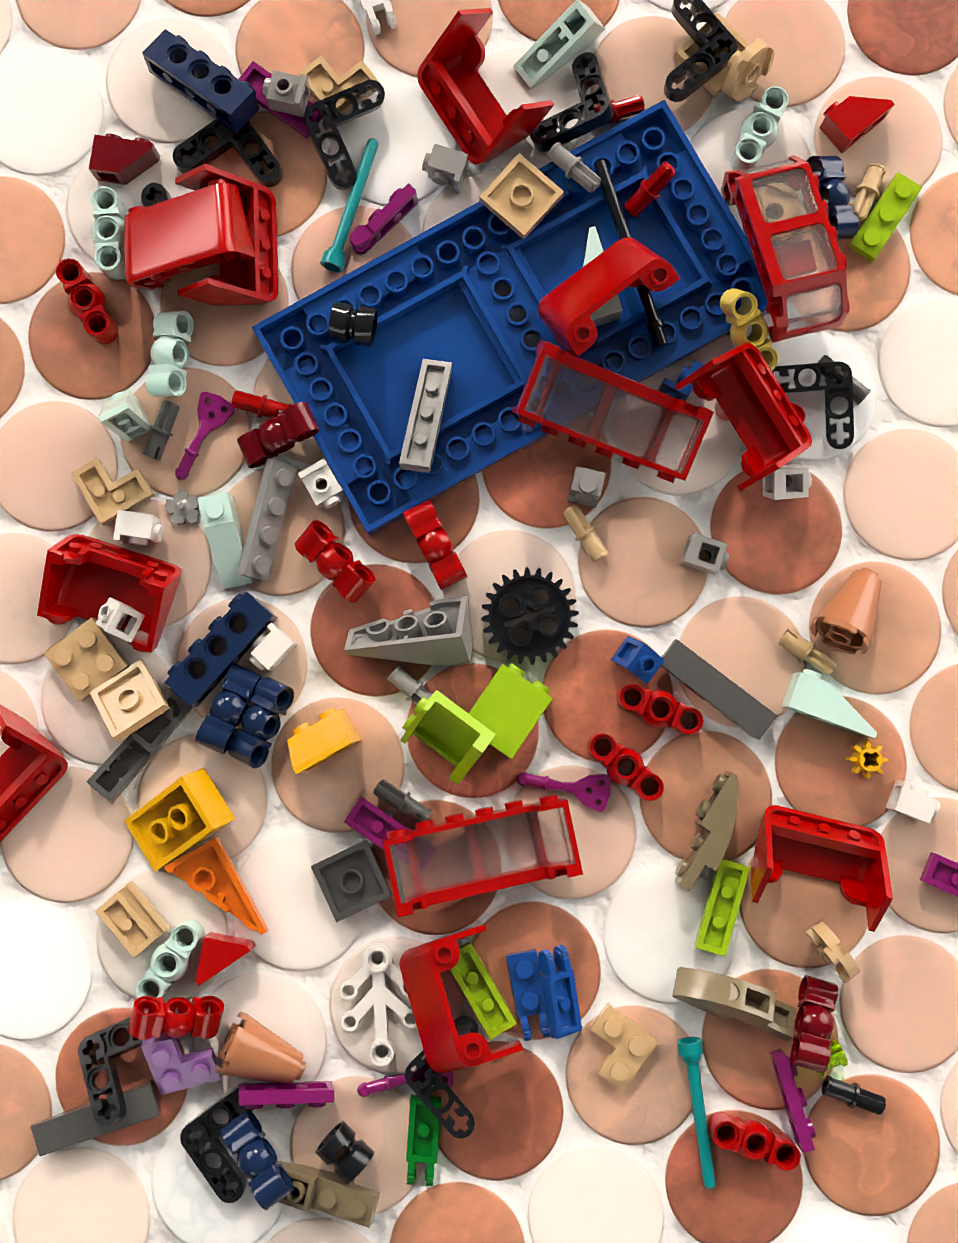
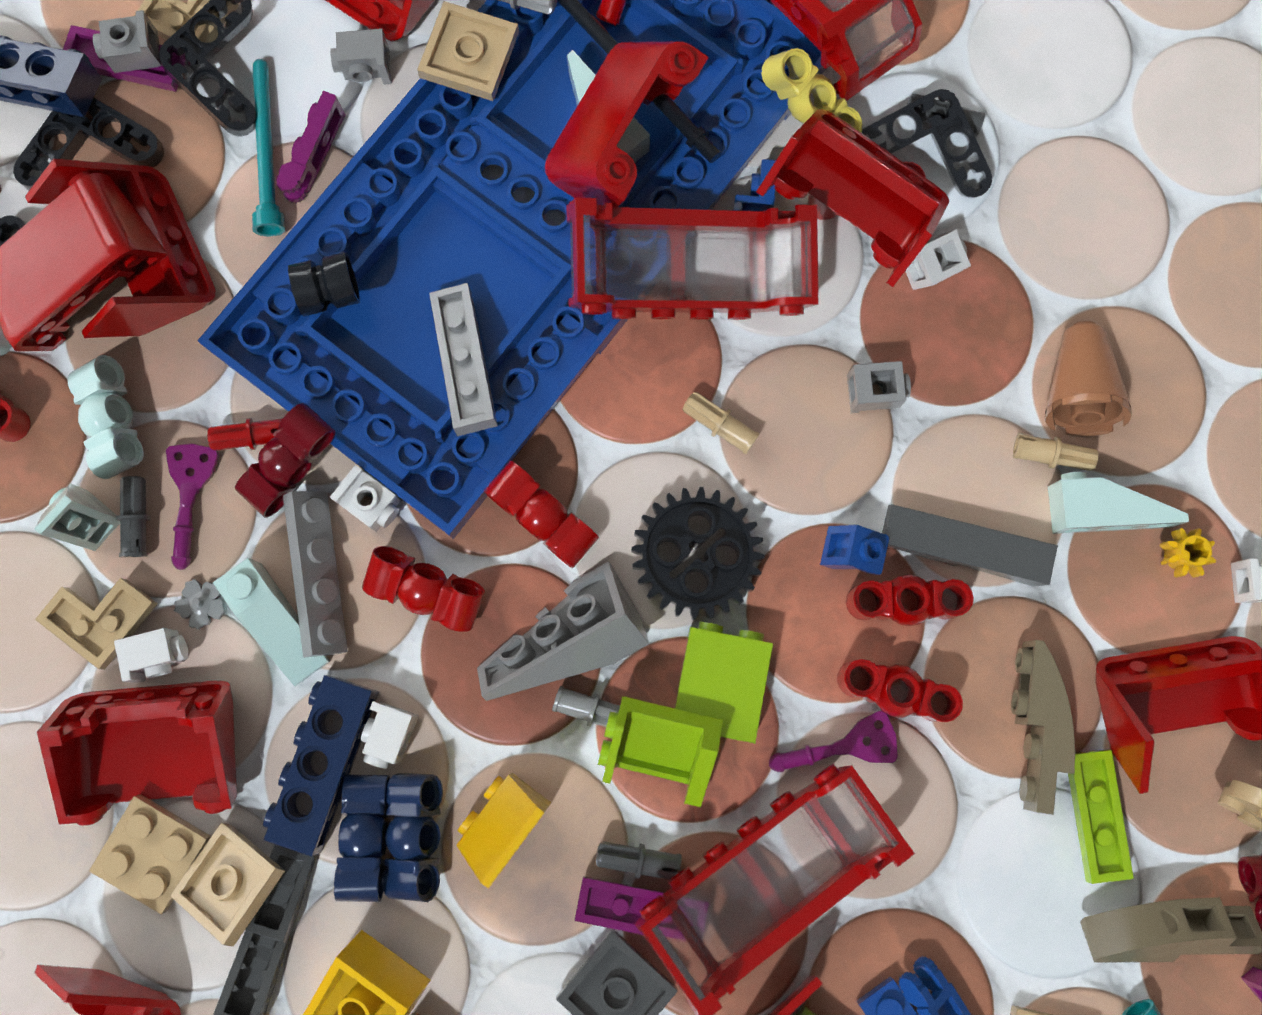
camera: 30 degrees left, 5 degrees down
(113, 615) = (162, 782): white brick -> none
(586, 487) = (697, 365): light grey brick -> none

